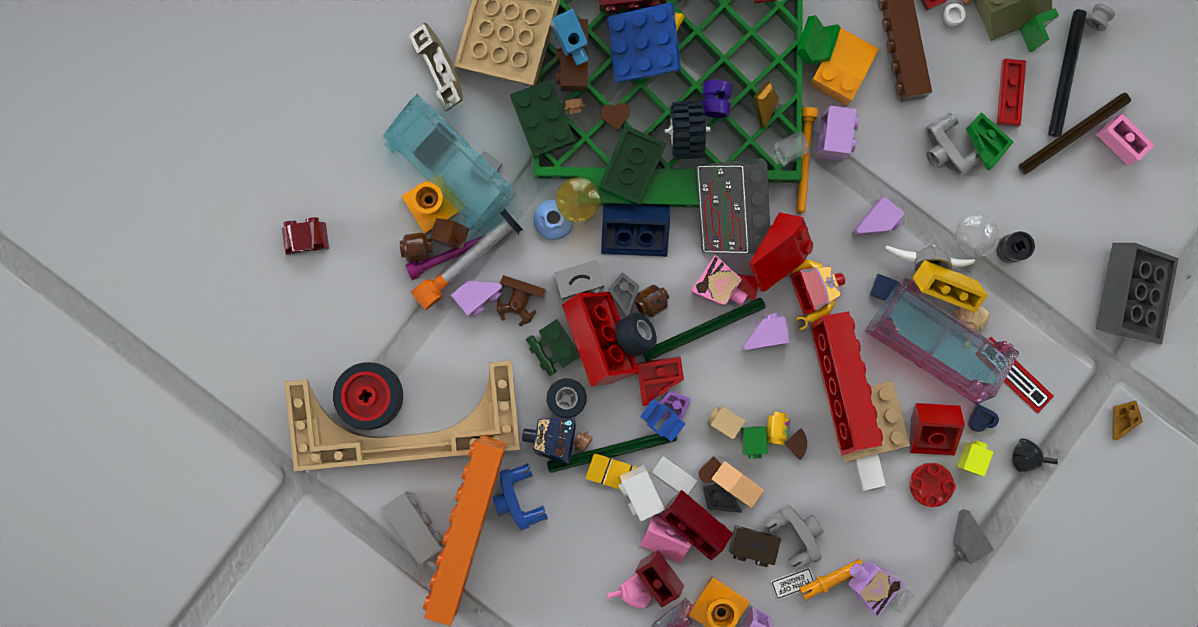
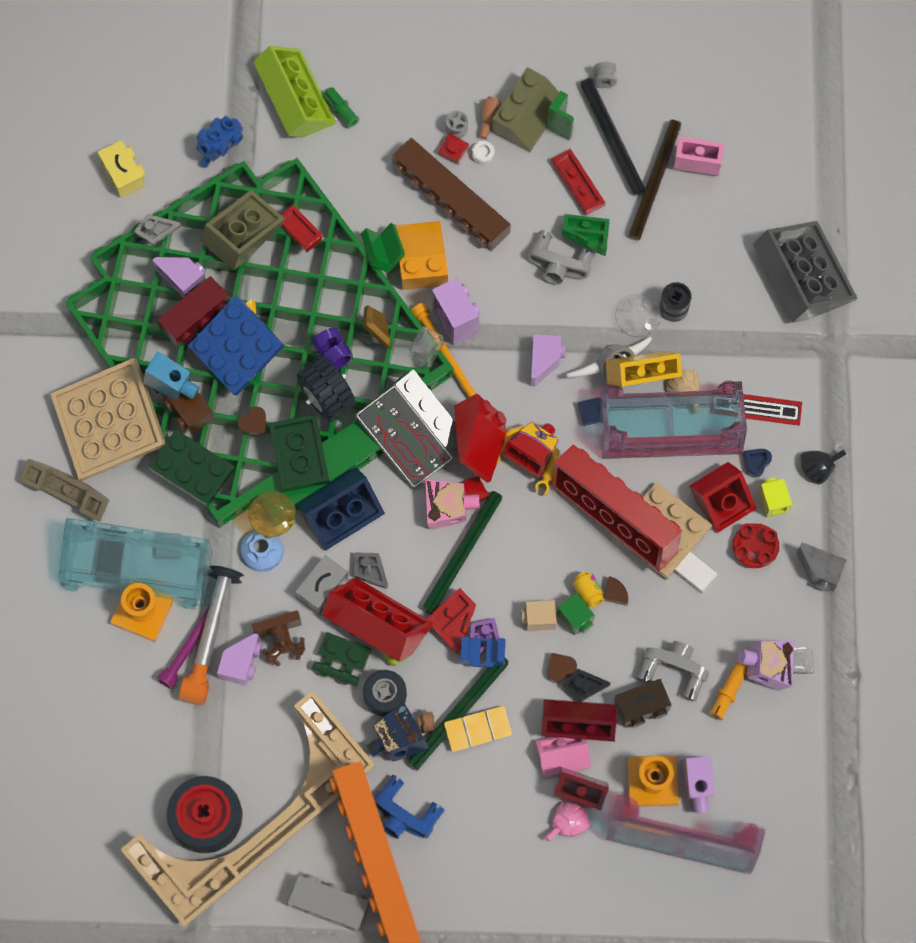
camera: 35 degrees left, 15 degrees down
(305, 236) = (44, 718): dark red cylinder -> none
(415, 247) = (155, 656): reddish brown head -> none
(449, 233) = (177, 622): reddish brown brick -> none
(574, 105) = (212, 437): medium nougat plate -> none
(635, 334) = (406, 593): black wheel -> none
(642, 493) = (511, 727): white brick -> none
(652, 300) = (399, 558): reddish brown head -> none
(674, 475) = (528, 695): white sticker -> none
(738, 484) = (590, 659): light nougat slope -> none
(768, 333) = (521, 515): lavender slope -> none
(790, 584) = (699, 717): white sticker -> none
(1125, 418) = (874, 378): pearl gold piece -> none

